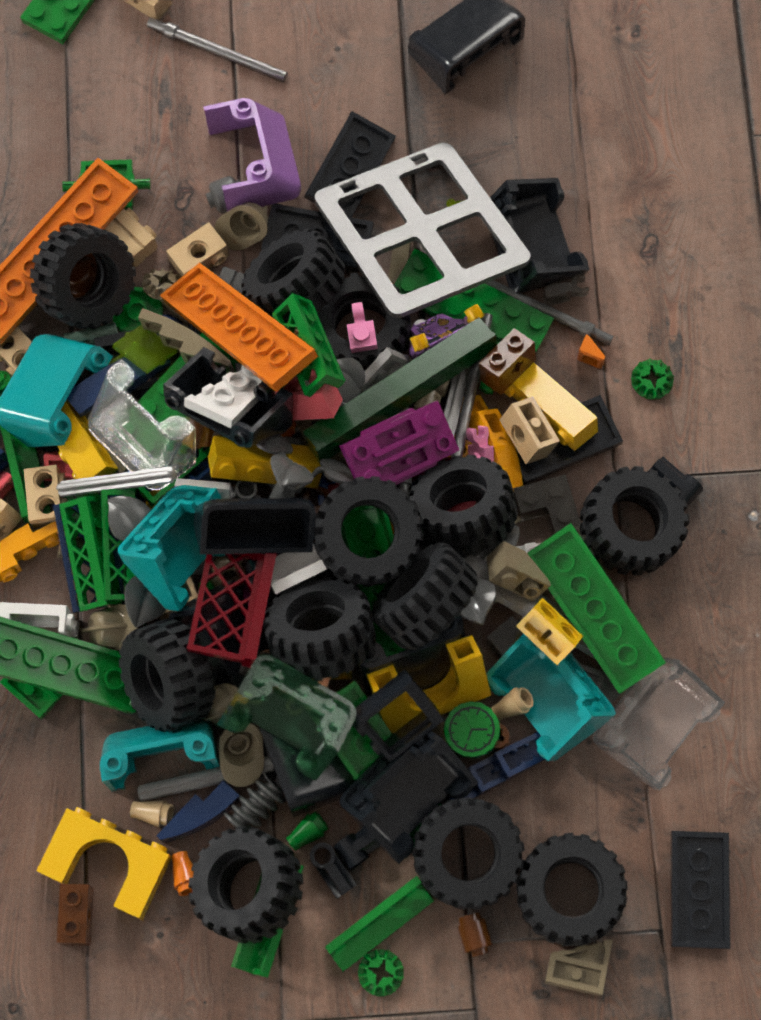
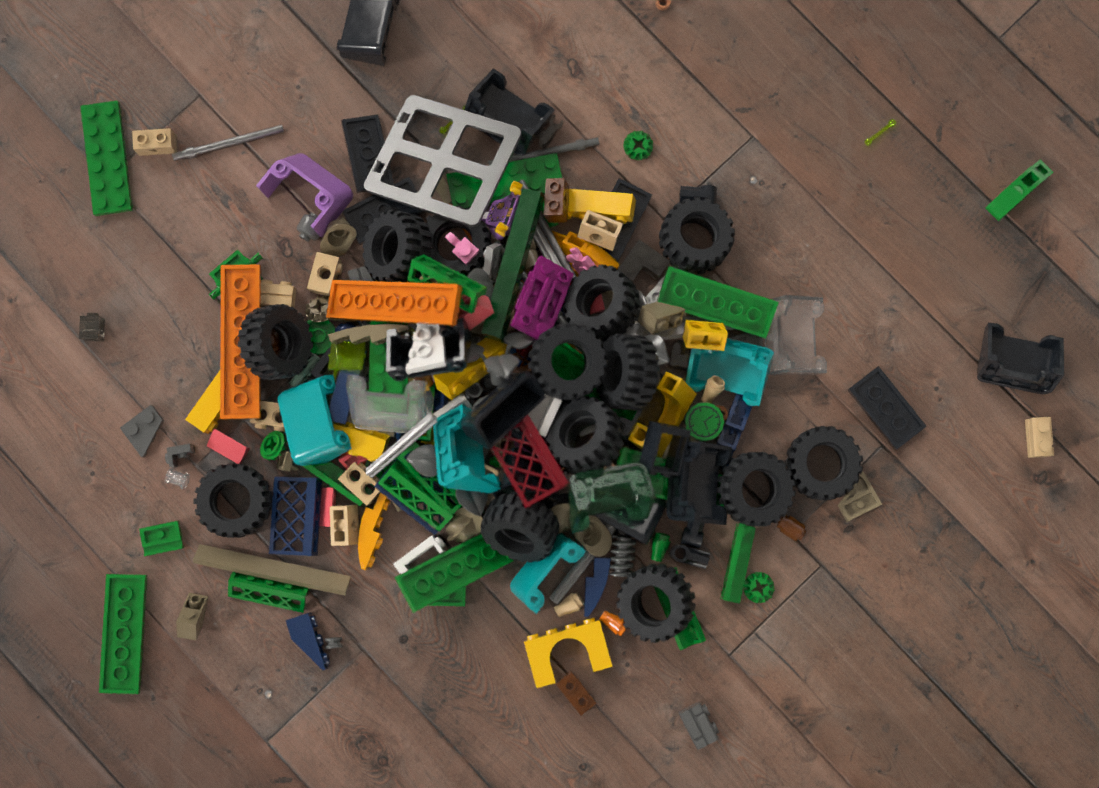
camera: 45 degrees left, 10 degrees up
(590, 353) = (593, 157): orange slope -> none

